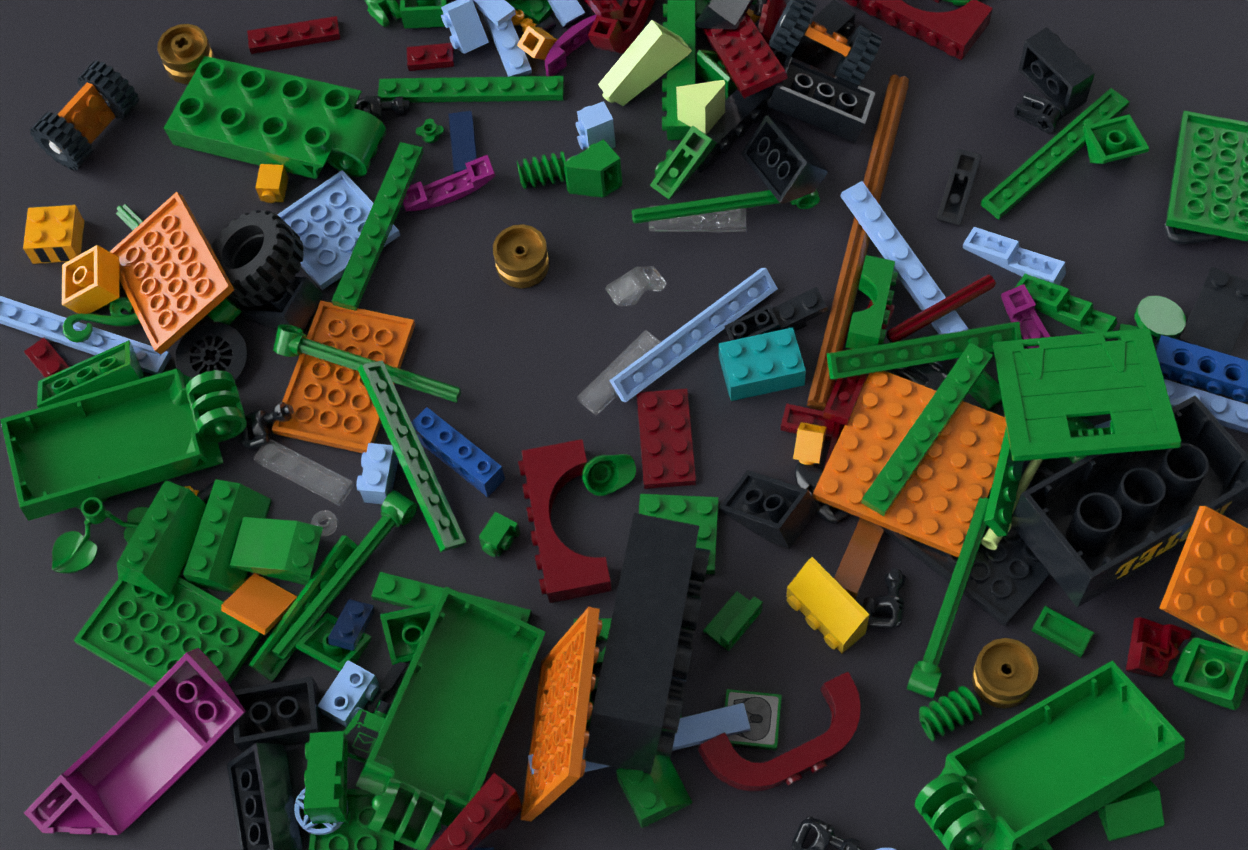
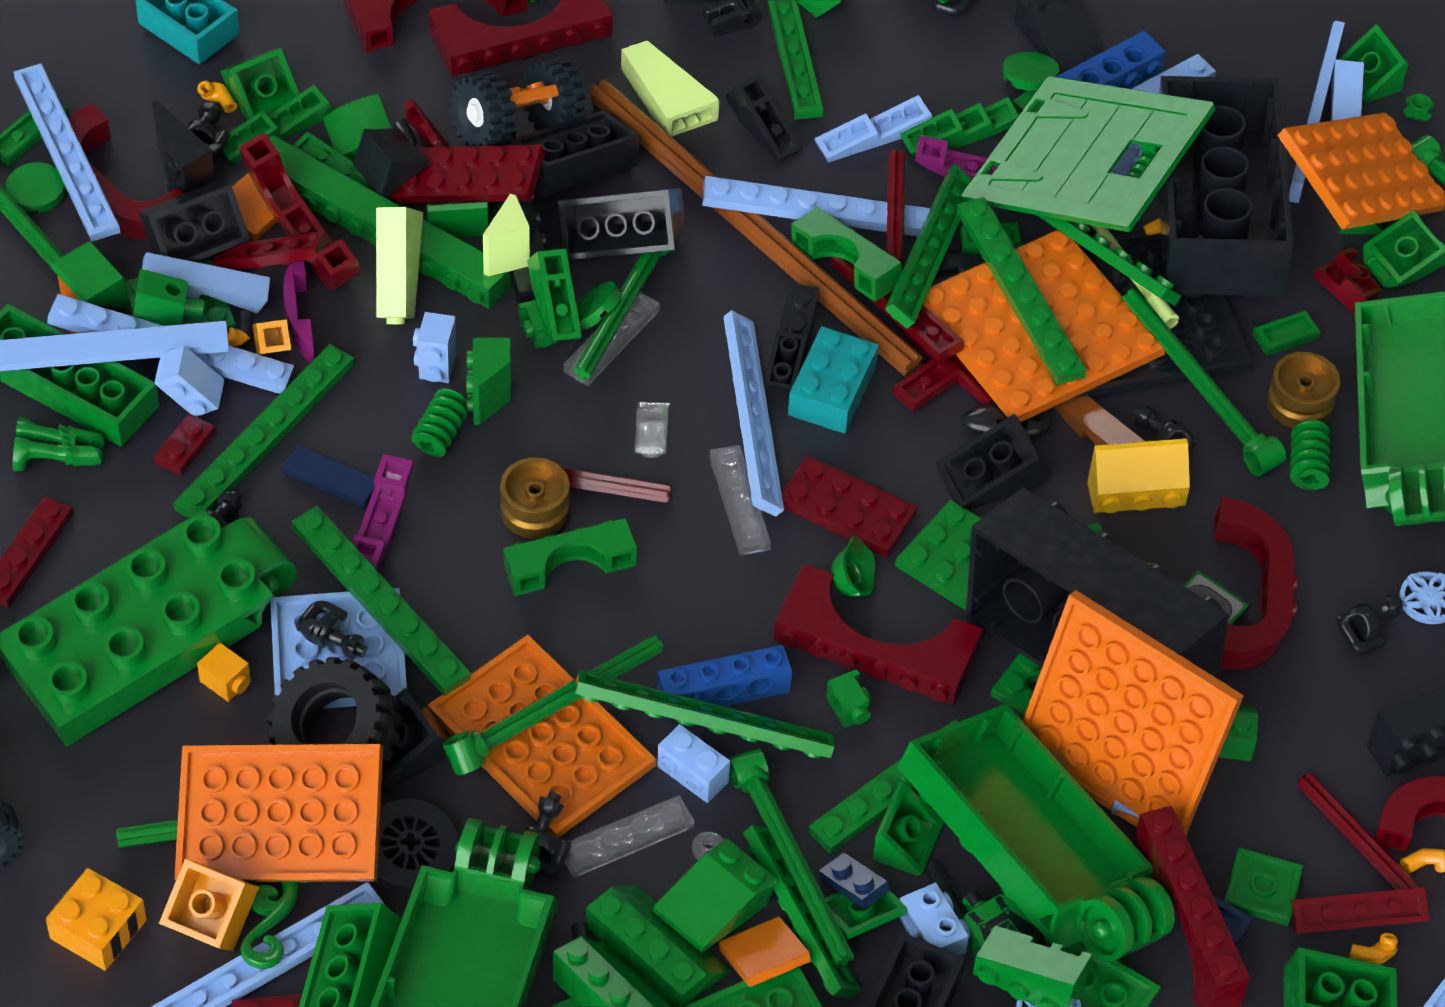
camera: 65 degrees left, 10 degrees down
(334, 211) = (325, 629): none -> black piece
(429, 136) = (288, 503): green plate -> none
(471, 288) = (605, 545): none -> green arch
(570, 283) = (618, 485): none -> axle
(705, 191) = (596, 302): none -> green tile
(809, 443) = (954, 392): light orange brick -> none
(931, 119) = (667, 90): none -> yellowish green slope

